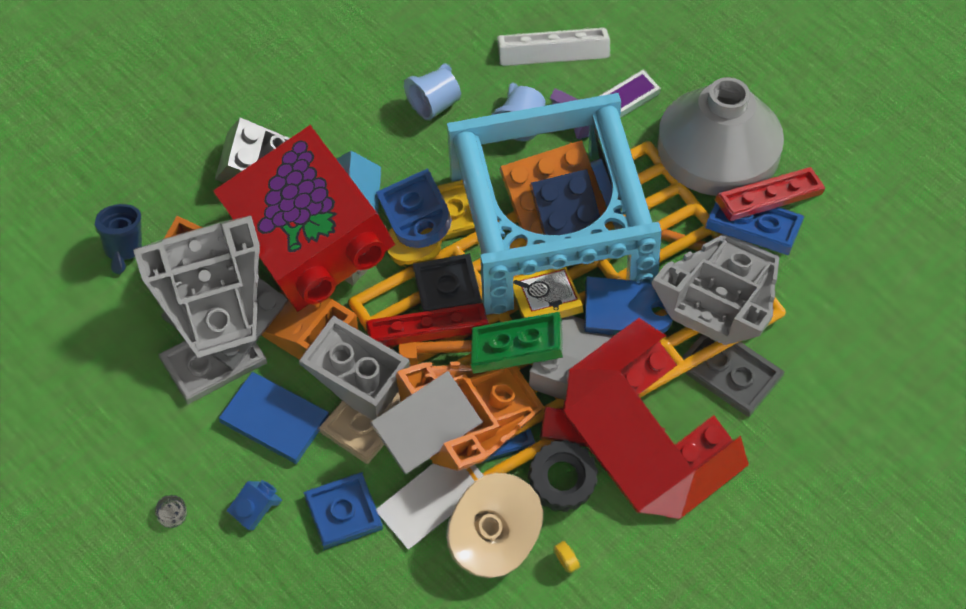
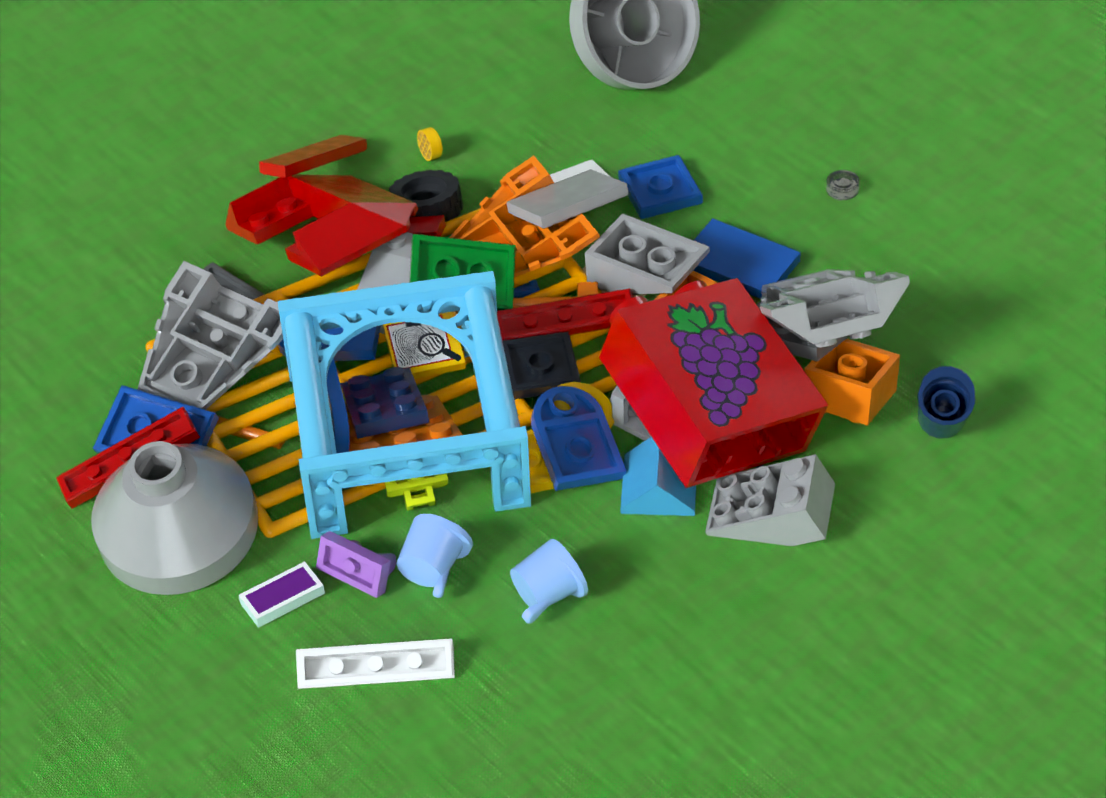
camera: 175 degrees left, 15 degrees down
(253, 503) = (750, 182): blue bracket -> none
(494, 525) = (498, 148): tan hat -> none
(674, 515) = (312, 156): none -> red tile

